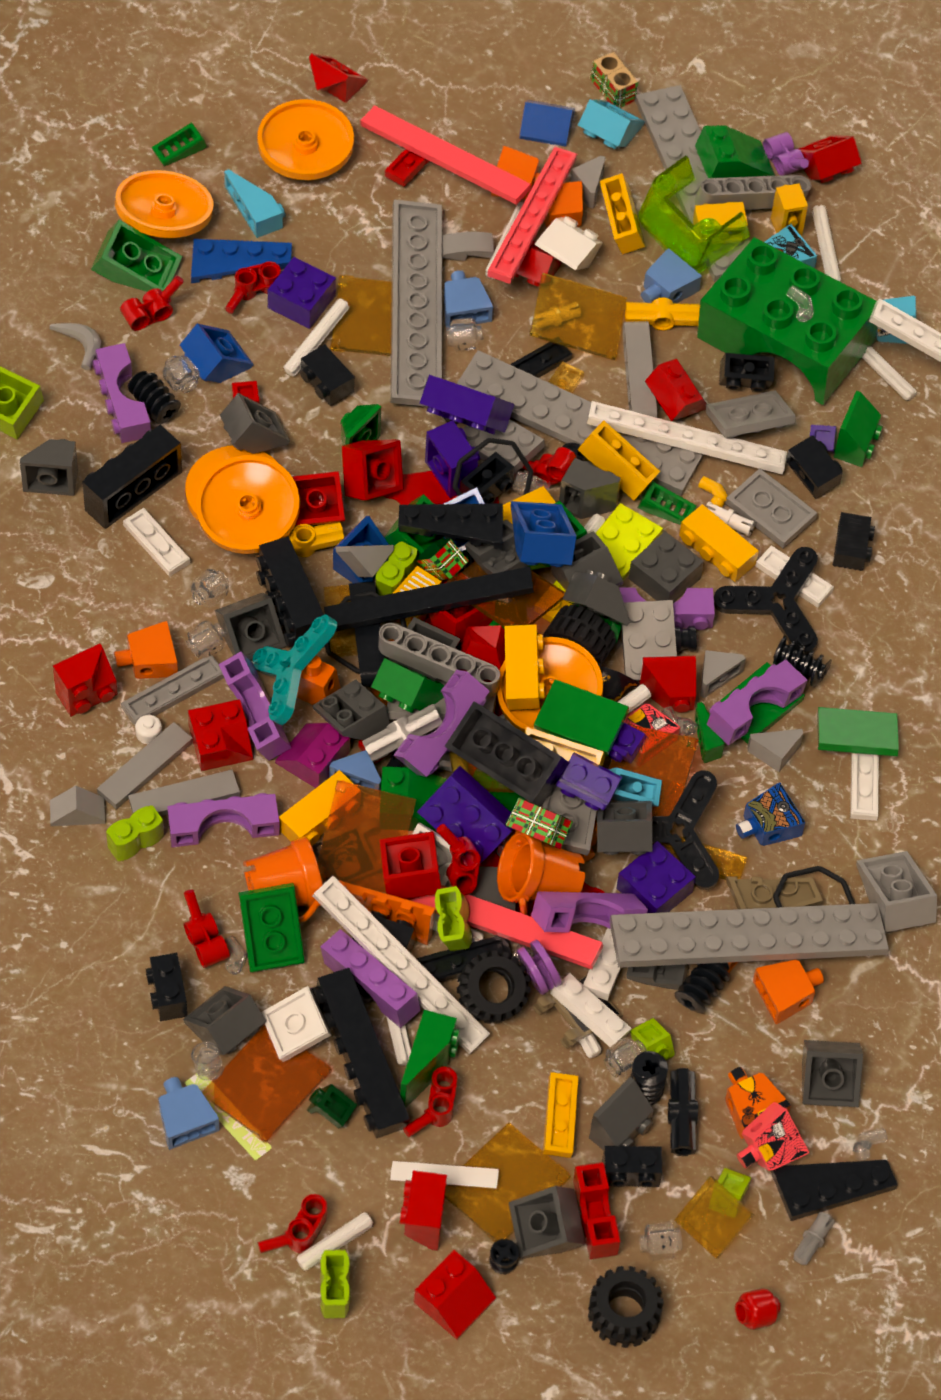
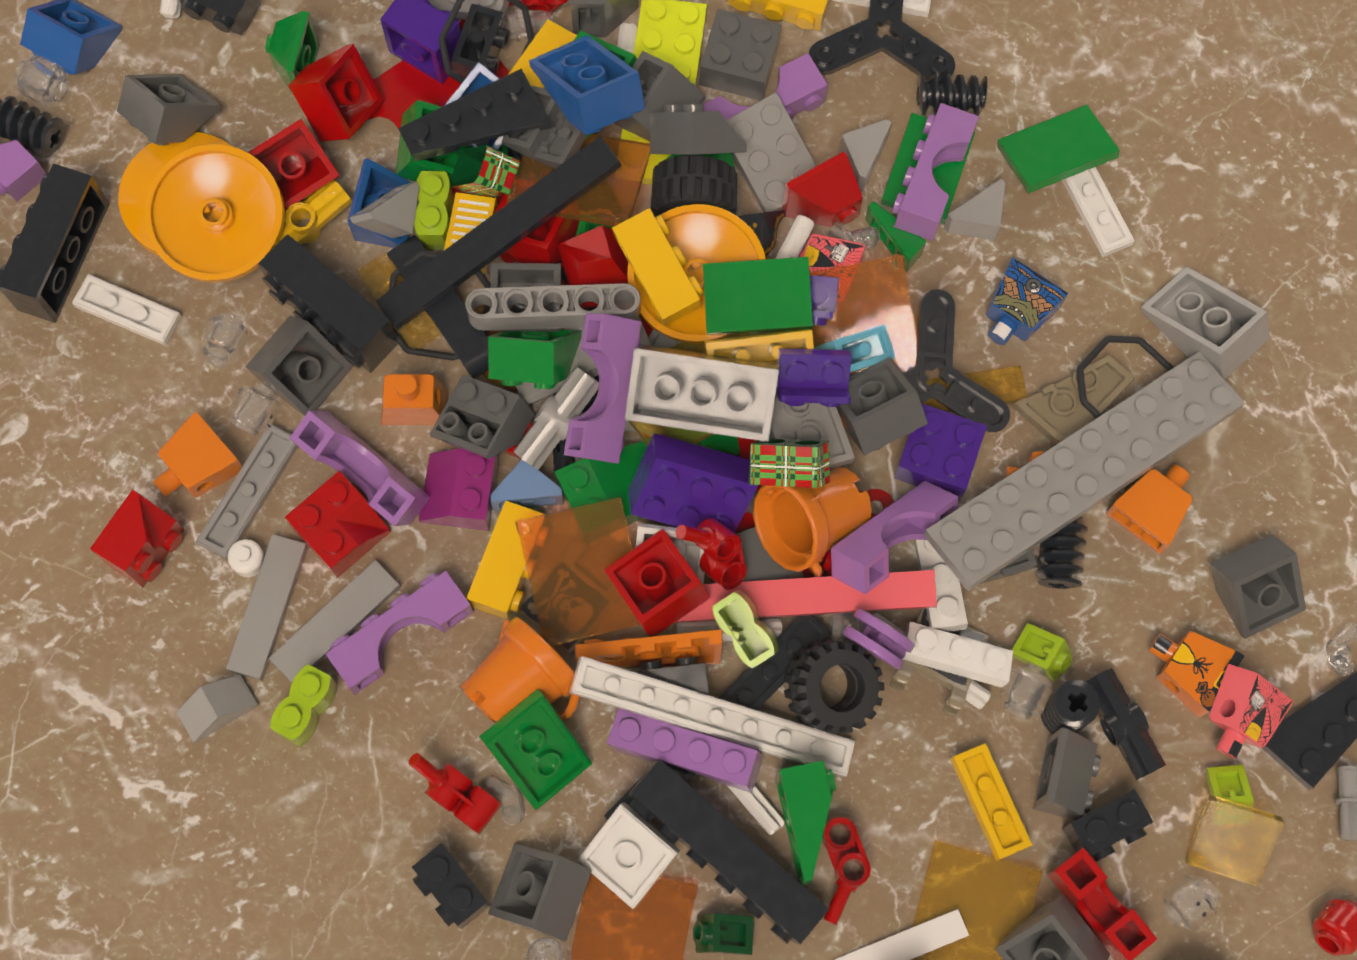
camera: 25 degrees left, 15 degrees up
(248, 389) = (131, 63): red plate -> none
(275, 663) = (385, 419): teal piece -> none
(686, 638) = (810, 128): black wheel -> none

